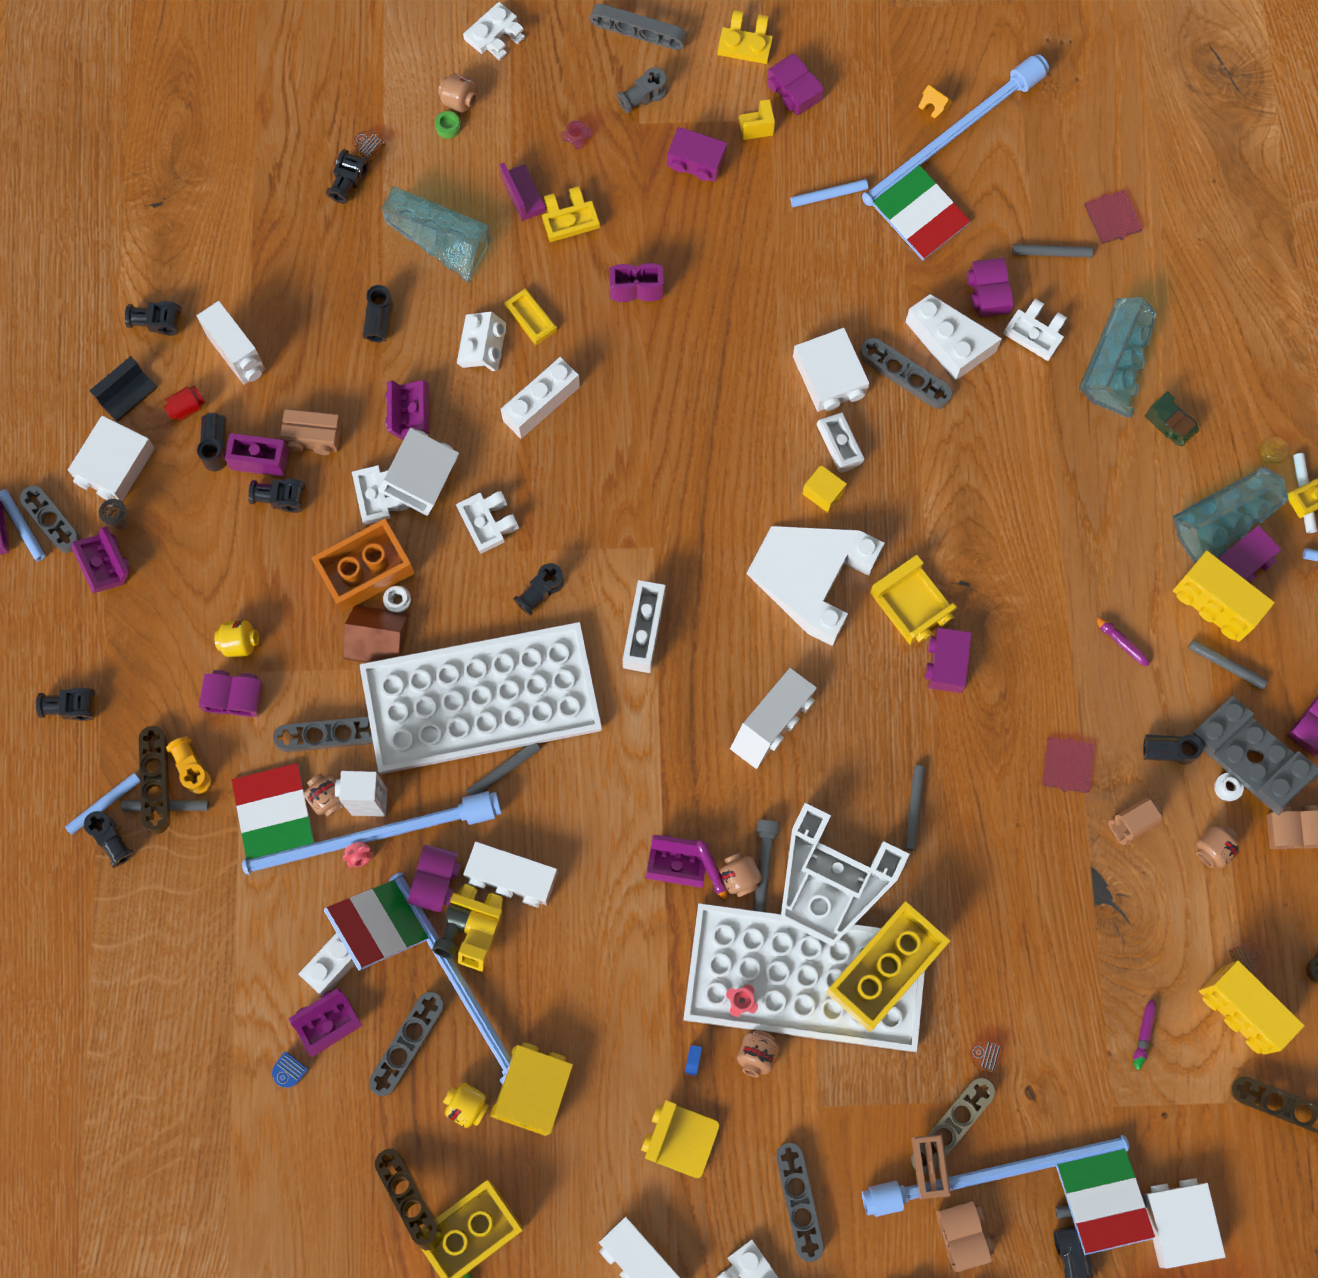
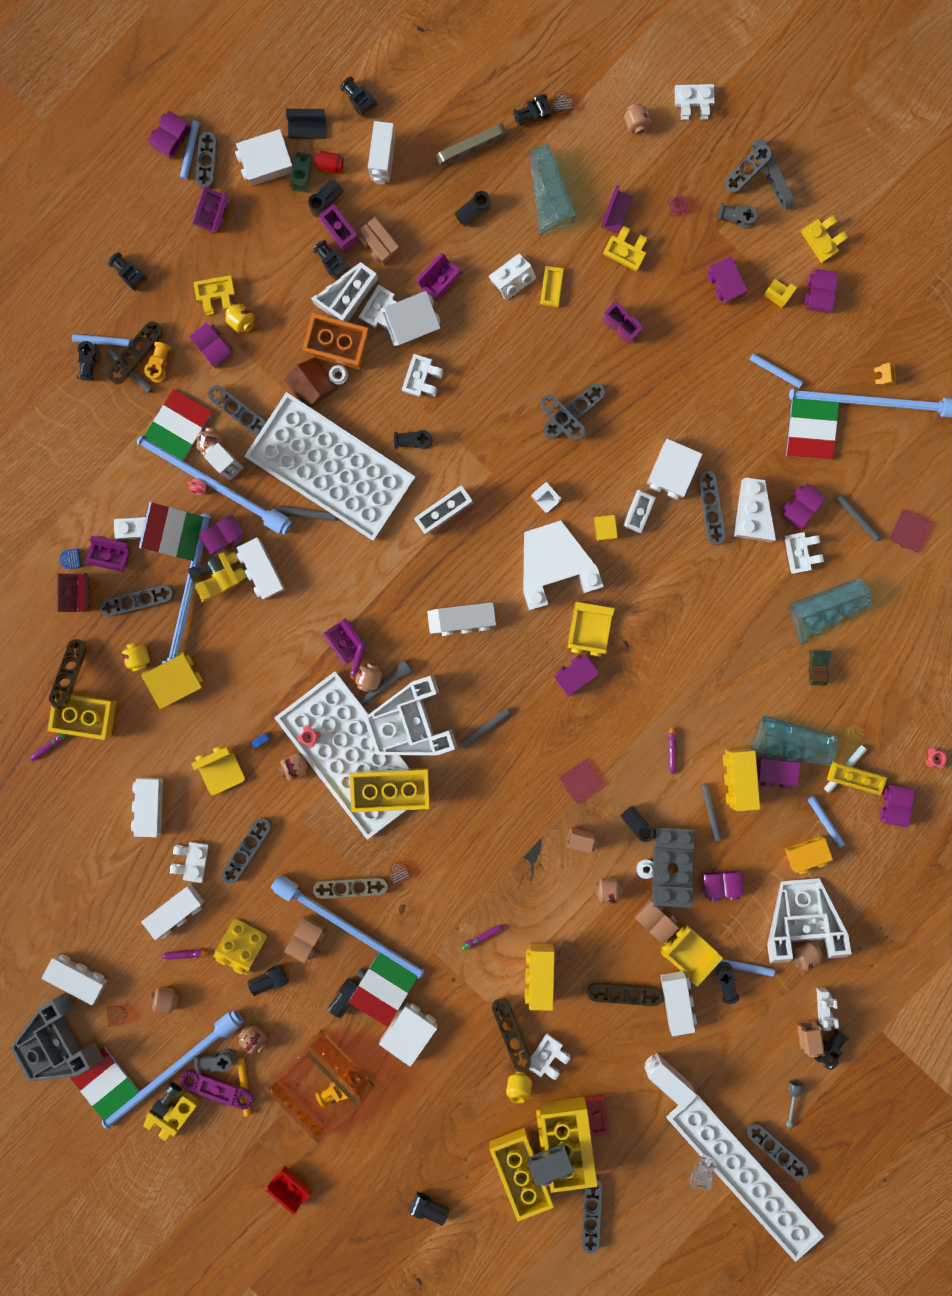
camera: 45 degrees right, 15 degrees up
(114, 513) = (238, 190): clear smoke cone -> none
(164, 439) = (301, 172): none -> clear green leg
(180, 636) = (214, 289): none -> yellow plate
(316, 259) = (471, 145): none -> dark tan beam
(327, 508) = (347, 293): none -> white wedge
(328, 1102) = (73, 592): none -> dark red bracket
(448, 124) = (616, 132): bright green tile -> none
(540, 398) = (511, 338): white brick -> none
(618, 21) = (755, 154): none -> dark grey beam
(674, 410) = (571, 407): none -> dark grey beam
(678, 415) = (575, 425): none -> dark grey beam
(734, 516) = (546, 497): none -> white panel
(945, 1192) = (329, 883): nougat tile -> none

